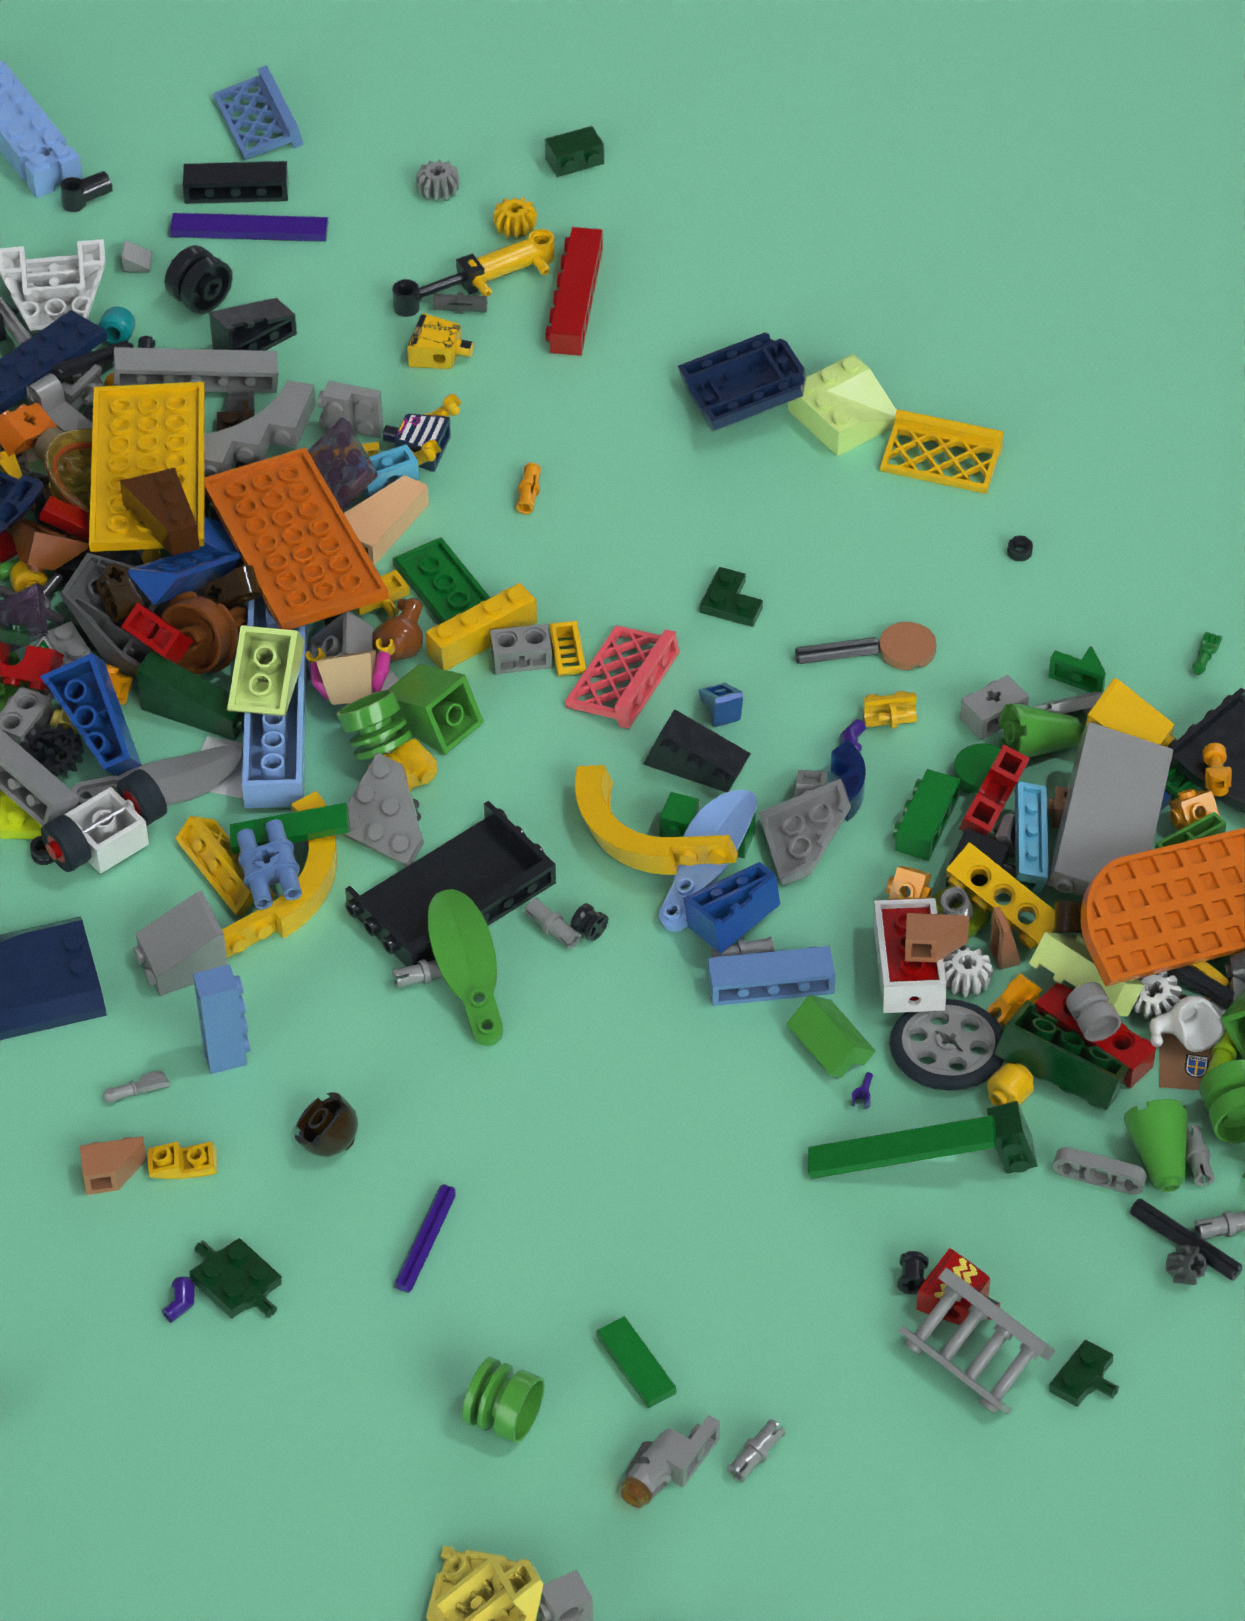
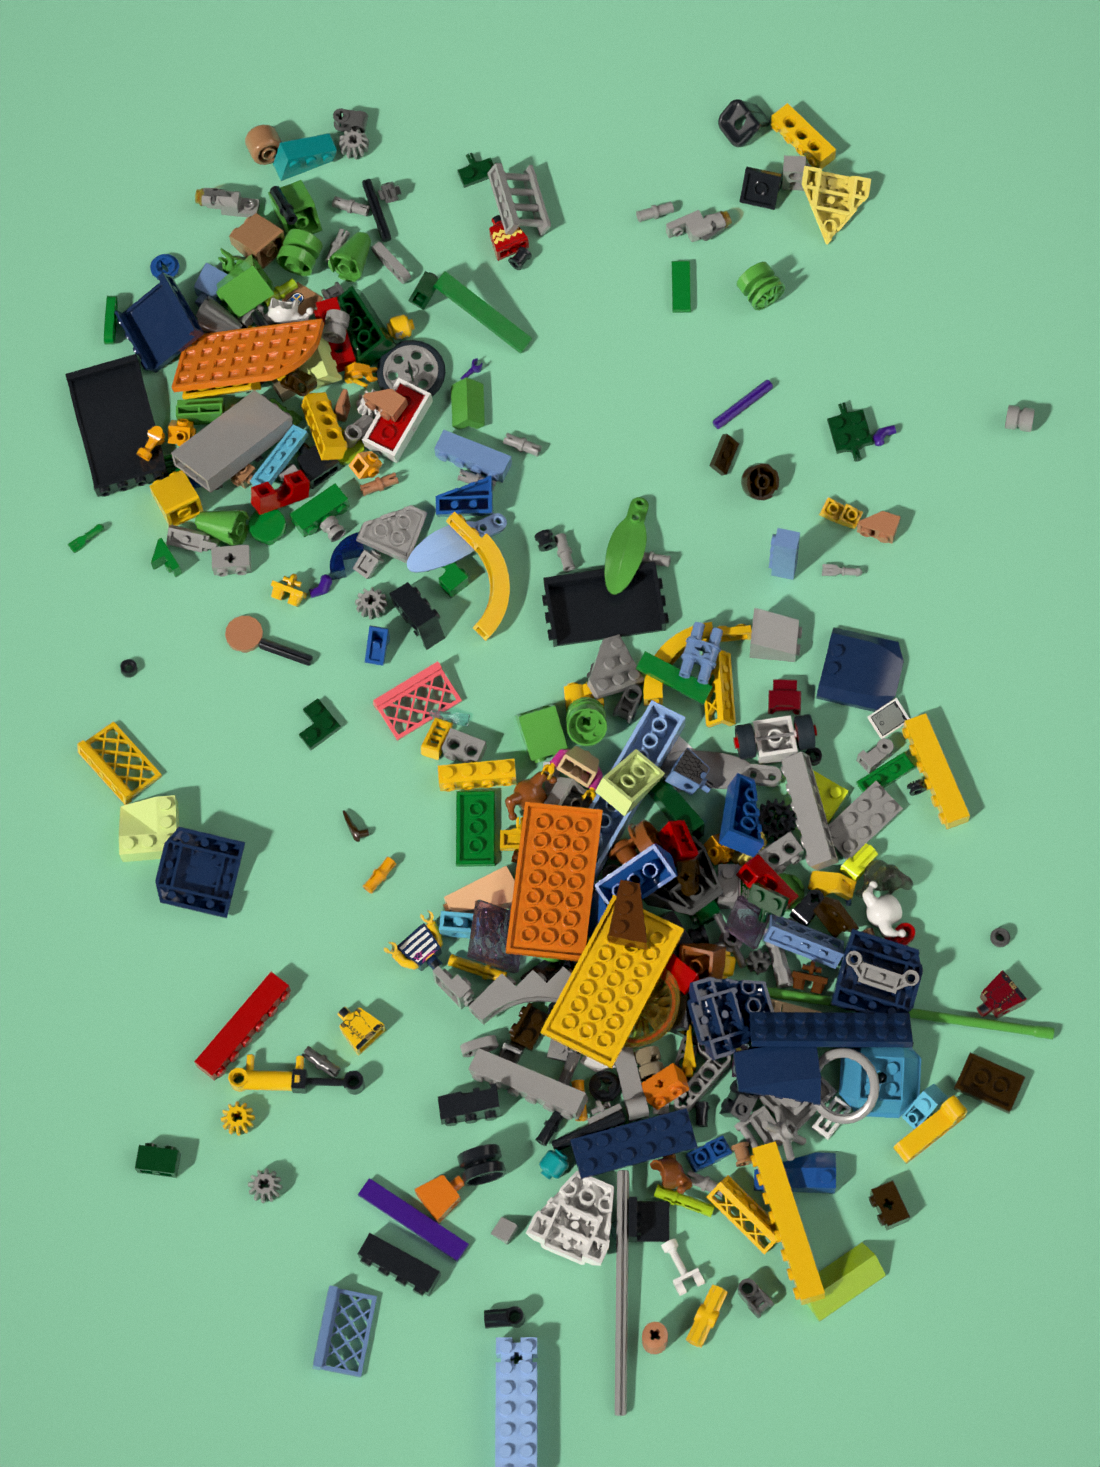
camera: 145 degrees left, 20 degrees up
(123, 892) = (784, 697): none -> dark red piece
(197, 733) = (689, 773): none -> torso
(233, 588) = (611, 855): dark brown piece -> none
(235, 246) = (440, 1196): none -> orange torso
(275, 385) = (485, 1043): none -> light grey beam
(335, 785) = (628, 707): none -> dark grey piece
(406, 1149) = (724, 454): none -> dark brown plate
(557, 681) = (457, 718): none -> clear light blue piece
(599, 517) = (356, 834): none -> dark brown bar
(612, 1571) = (760, 188): none -> black bracket
(714, 1028) = (522, 444): none -> light grey pin
(769, 744) = (365, 599): none -> light grey gear
(874, 885) = (379, 484): none -> nougat pin
(890, 801) = (332, 528): none -> light grey wheel
(1148, 1087) = (334, 291): none -> dark grey bush

